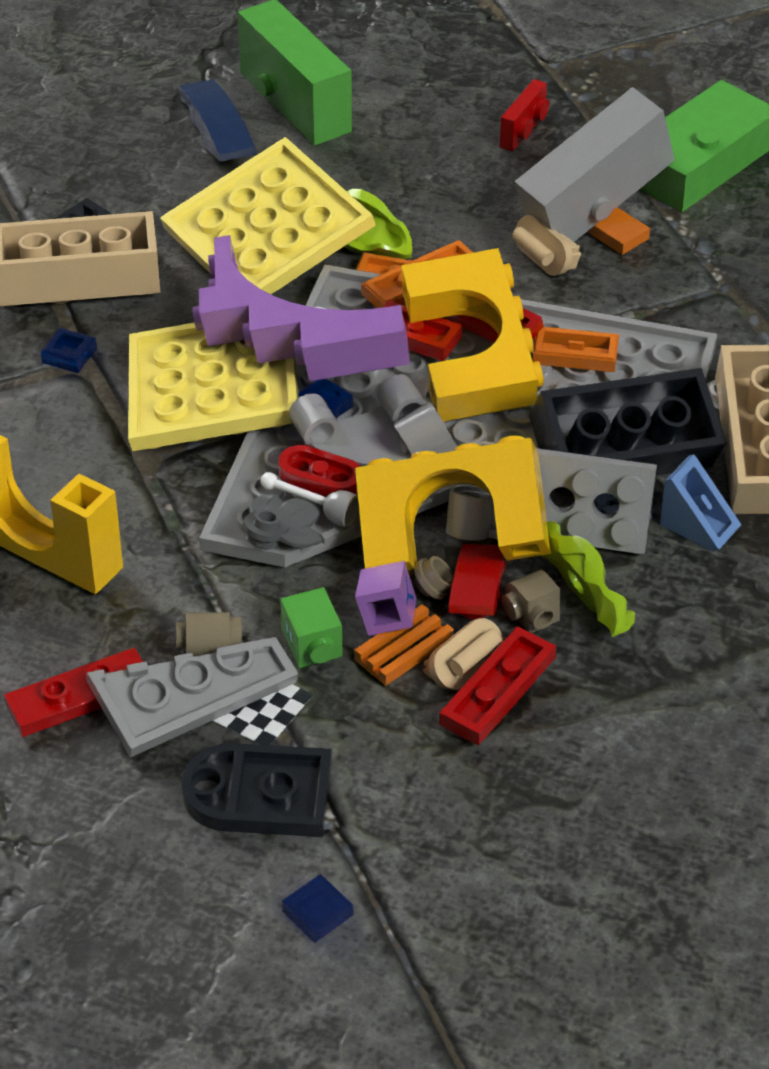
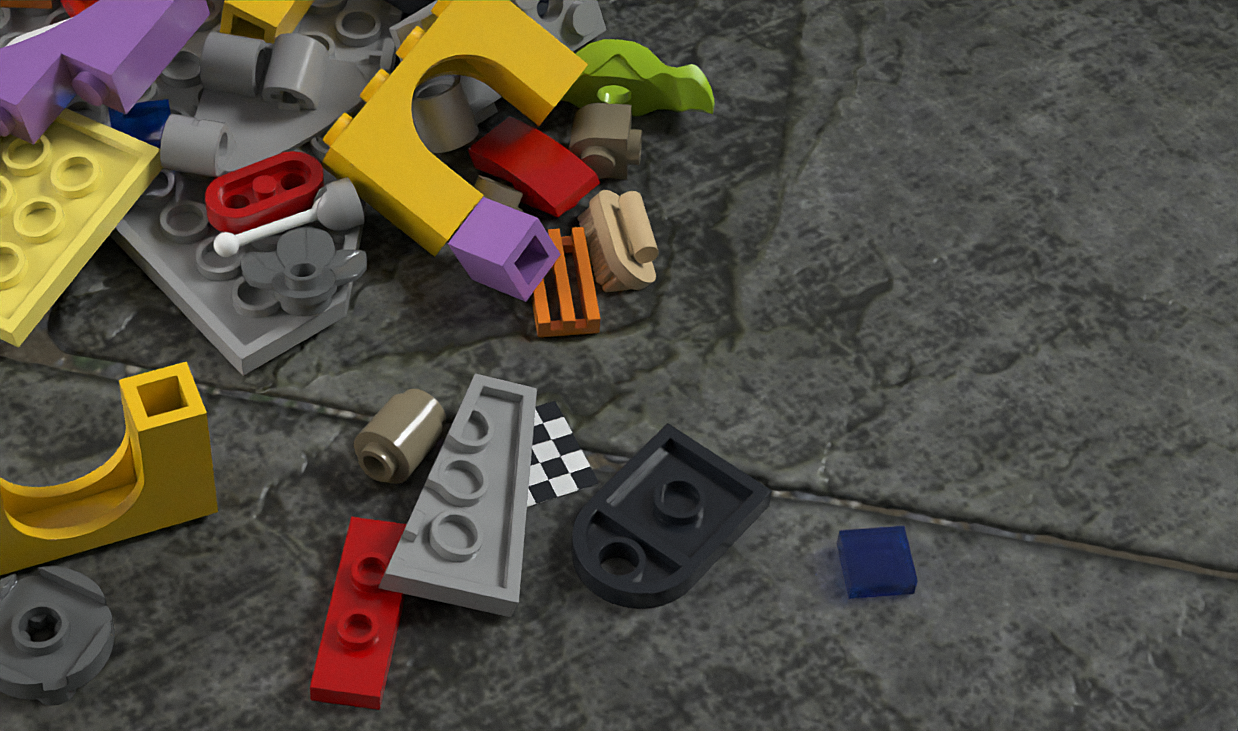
camera: 60 degrees left, 5 degrees up
(311, 627) = (477, 337): bright green brick -> none
(497, 685) = (696, 239): red plate -> none

